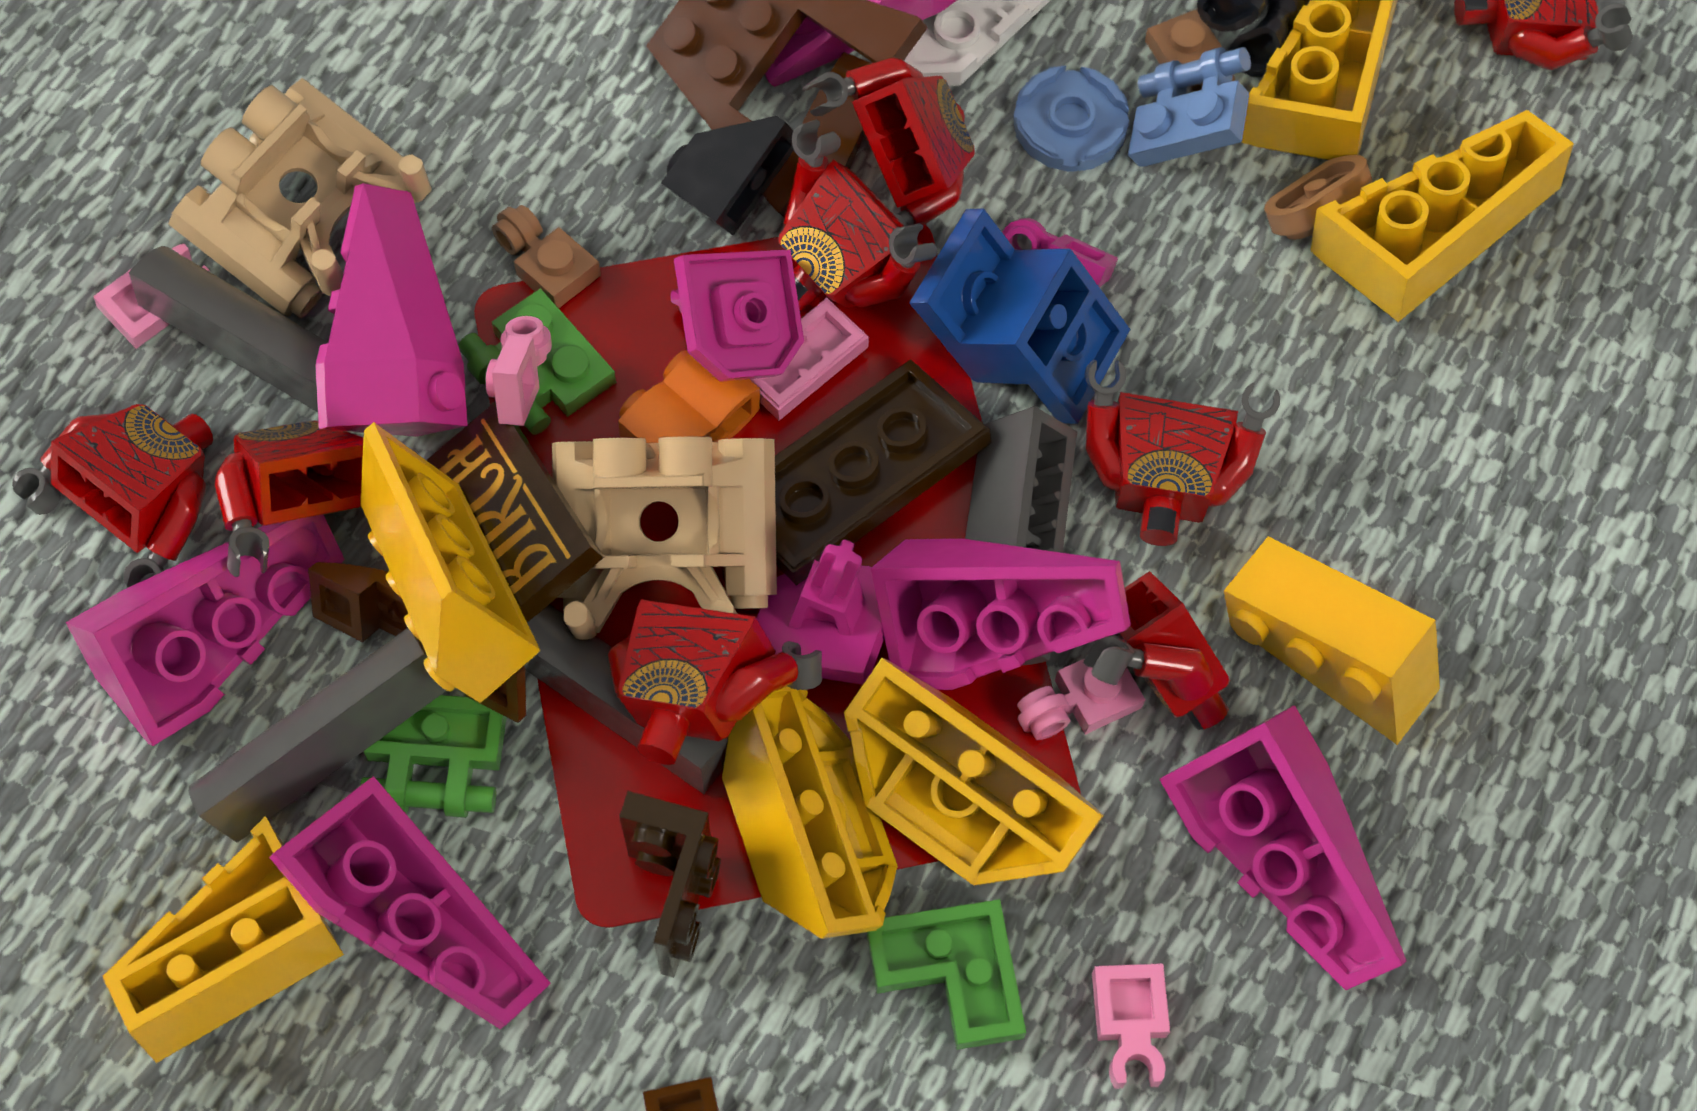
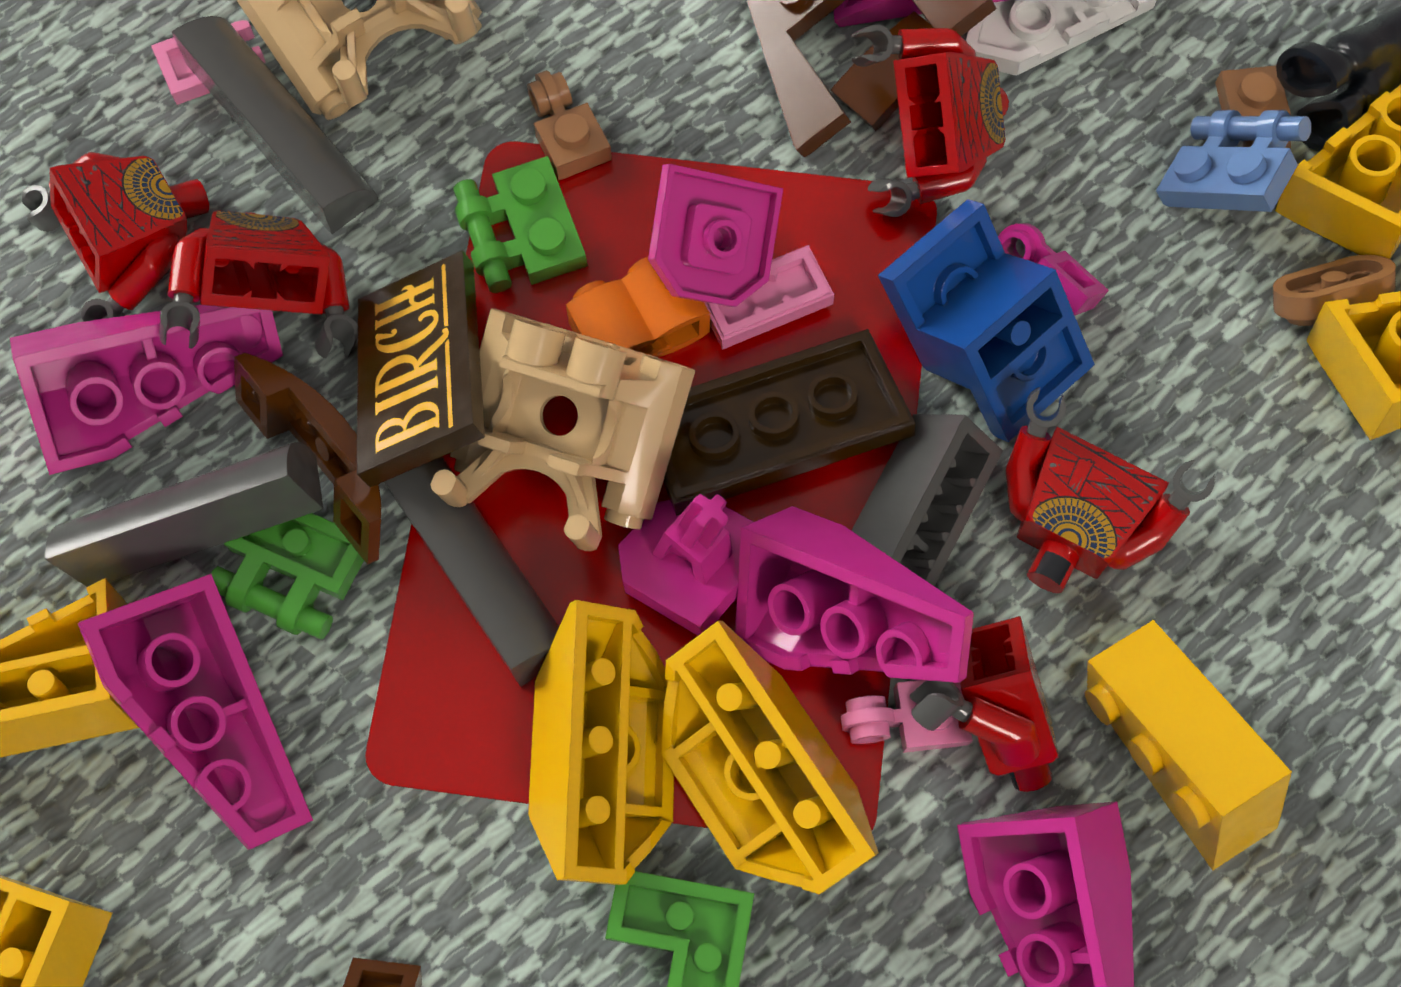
camera: 25 degrees right, 5 degrees up
(391, 332) = (385, 158): dark pink wedge -> none
(442, 570) = (337, 401): yellow slope -> none
(515, 374) = (481, 231): bright pink plate -> none
(679, 843) = (470, 765): dark brown bracket -> none
(699, 673) = (536, 581): red torso -> none
(729, 168) = (762, 93): black slope -> none
(844, 232) = (843, 185): torso -> none
(1062, 132) = (1109, 156): medium blue tile -> none

